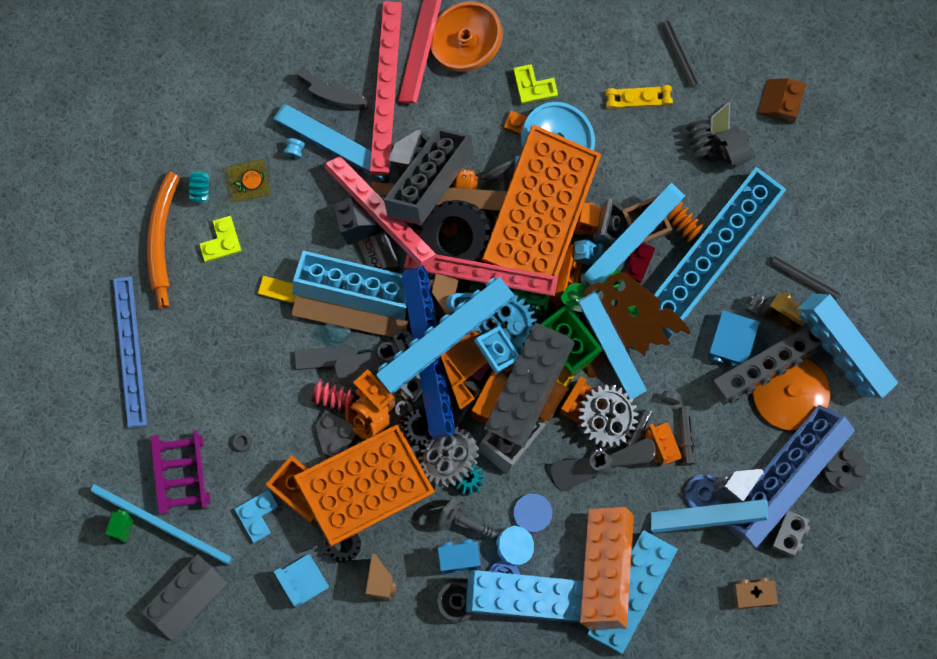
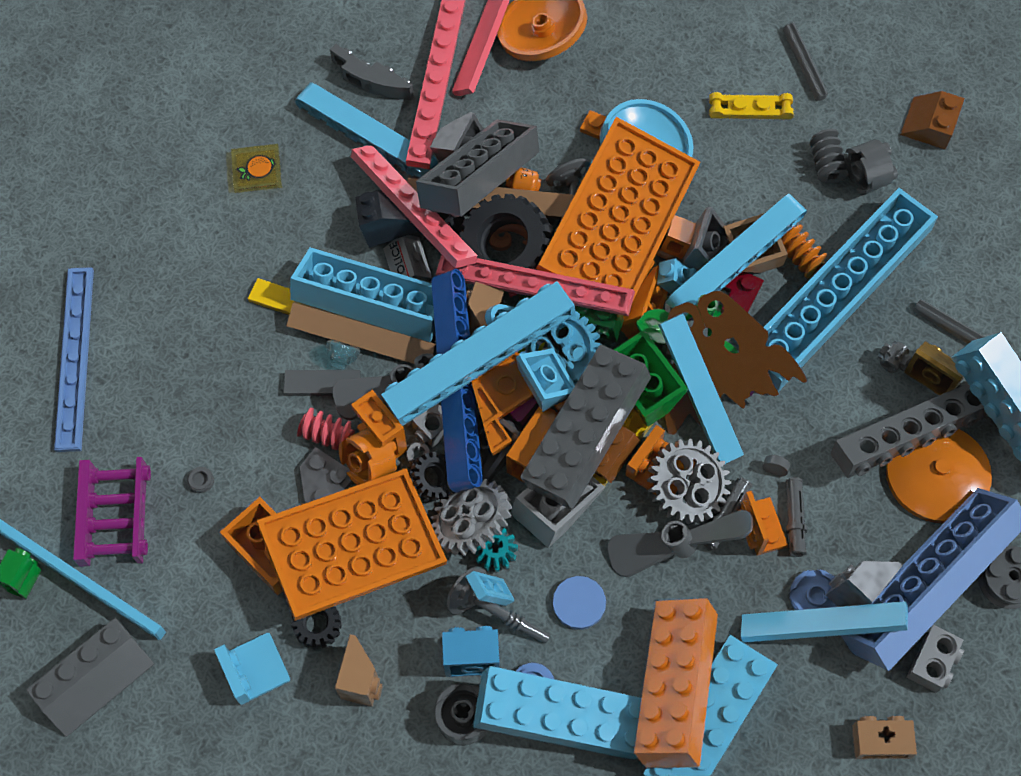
camera: 10 degrees right, 10 degrees down
(156, 239) = (130, 224): orange animal -> none
(199, 187) = (191, 168): teal gear -> none
(226, 241) = (215, 239): neon yellow plate -> none
(252, 512) = (200, 572): medium azure plate -> none
(293, 148) = (316, 134): medium azure wheel -> none
(468, 511) = (490, 588): none -> medium azure tile
(515, 545) = (551, 643): medium azure tile -> none
(533, 90) = (616, 88): neon yellow plate -> none
(720, 120) = (853, 136): olive tile -> none
(733, 339) = (862, 396): dark azure brick -> none

